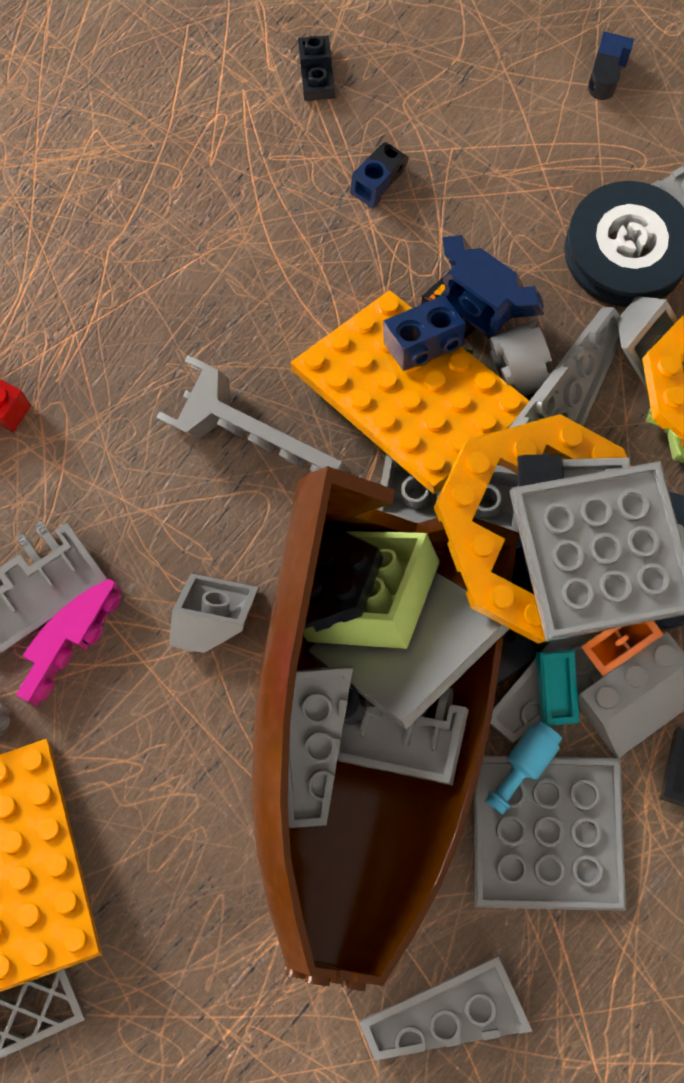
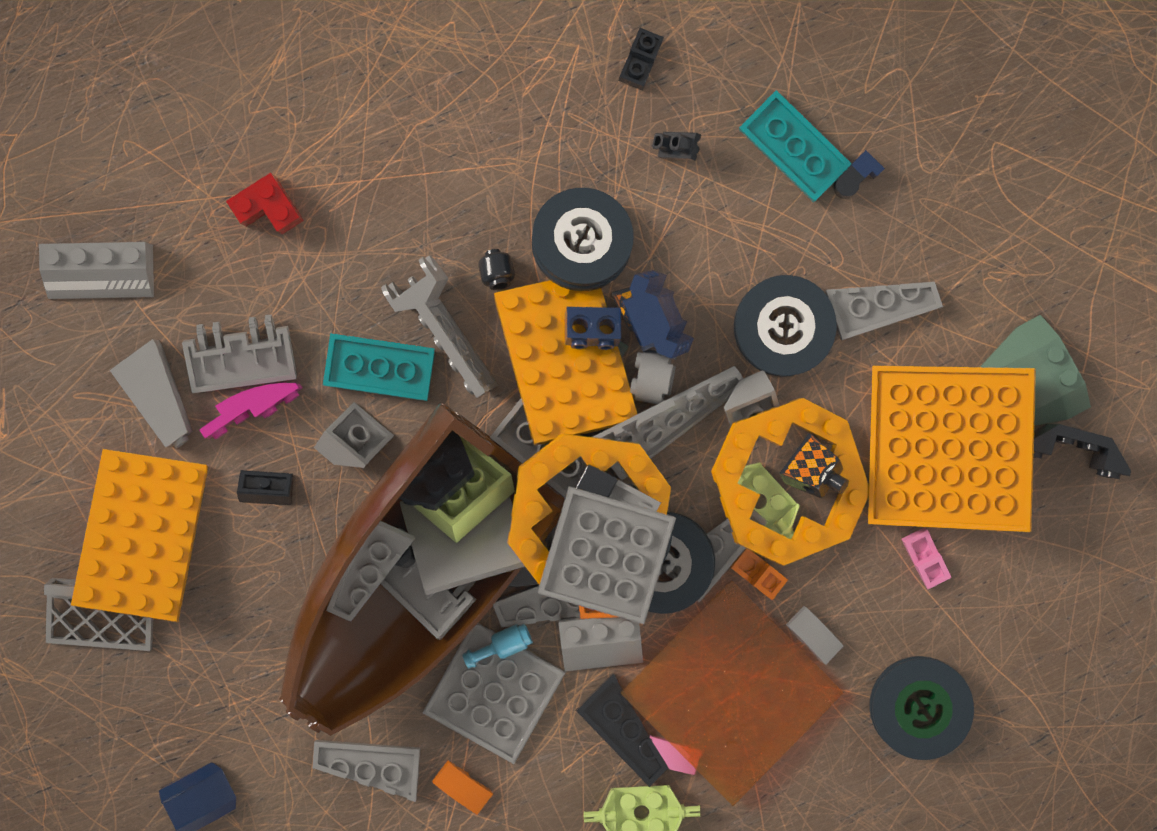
camera: 25 degrees right, 15 degrees up
(133, 730) = (265, 487): none -> black slope
(199, 516) = (379, 366): none -> teal plate
(278, 342) = (496, 269): none -> black head
(377, 174) = (638, 174): dark blue leg -> none
(387, 261) = (558, 220): none -> black wheel
(408, 120) = (677, 145): none -> black hips
(527, 70) = (794, 146): none -> teal plate
(557, 687) = (545, 615): teal tile -> none
(579, 978) = (462, 787): none -> orange slope

